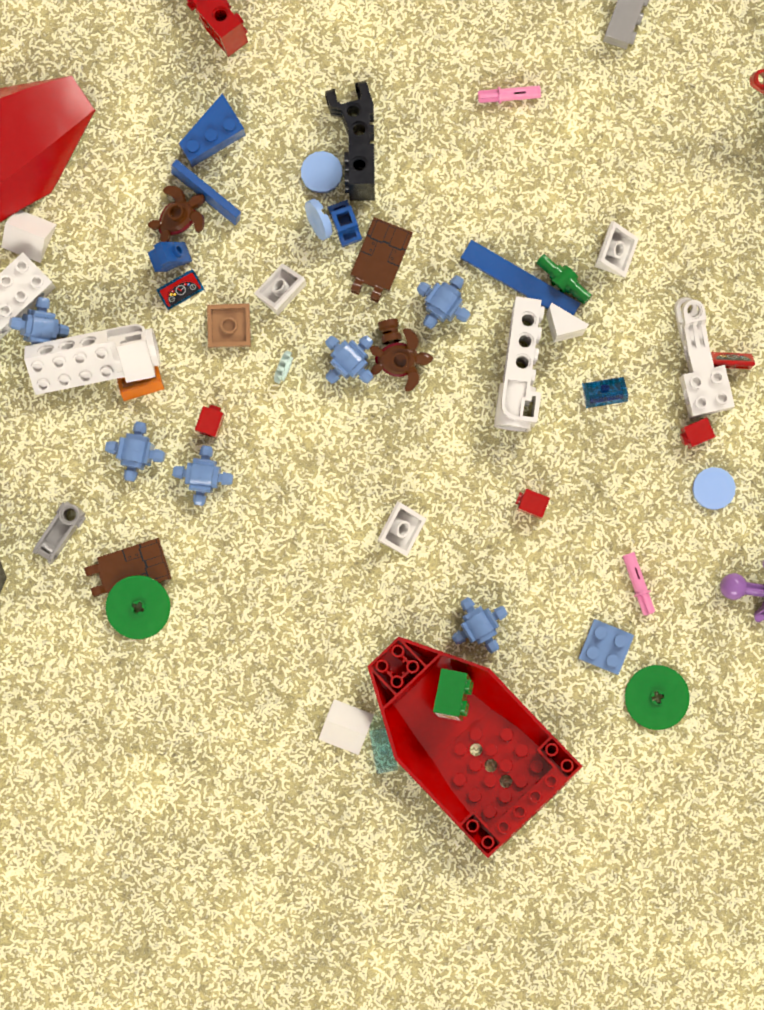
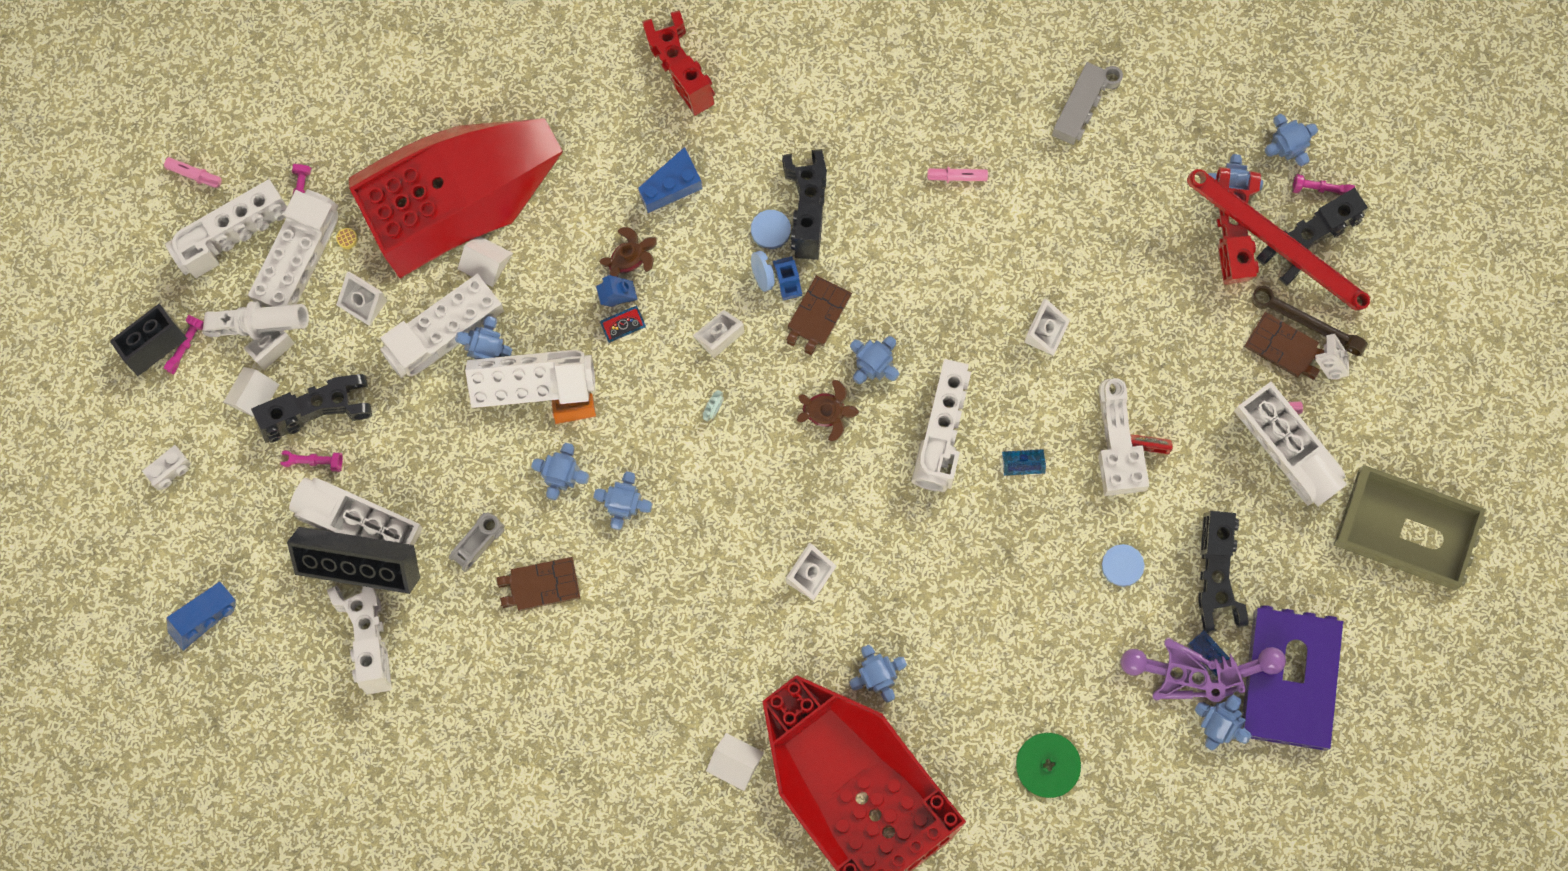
camera: 10 degrees right, 10 degrees down
(135, 590) = (527, 623): green piece -> none
(210, 421) = (636, 450): red brick -> none
(211, 196) = (664, 242): blue tile -> none
(229, 325) = (665, 362): medium nougat plate -> none
(349, 359) = (777, 405): medium blue piece -> none
(382, 751) = (768, 789): clear light blue plate -> none
(389, 331) = (819, 382): reddish brown wheel -> none
(452, 695) = (843, 736): green brick -> none
(516, 278) = (951, 348): blue tile -> none
(532, 503) = (942, 560): red brick -> none
(563, 324) = (990, 392): white slope -> none
(564, 279) = (993, 350): green pin -> none
(606, 647) = (1002, 709): medium blue plate -> none
(639, 584) = (1040, 651): bright pink axle -> none
(697, 433) = (1110, 509): red brick -> none

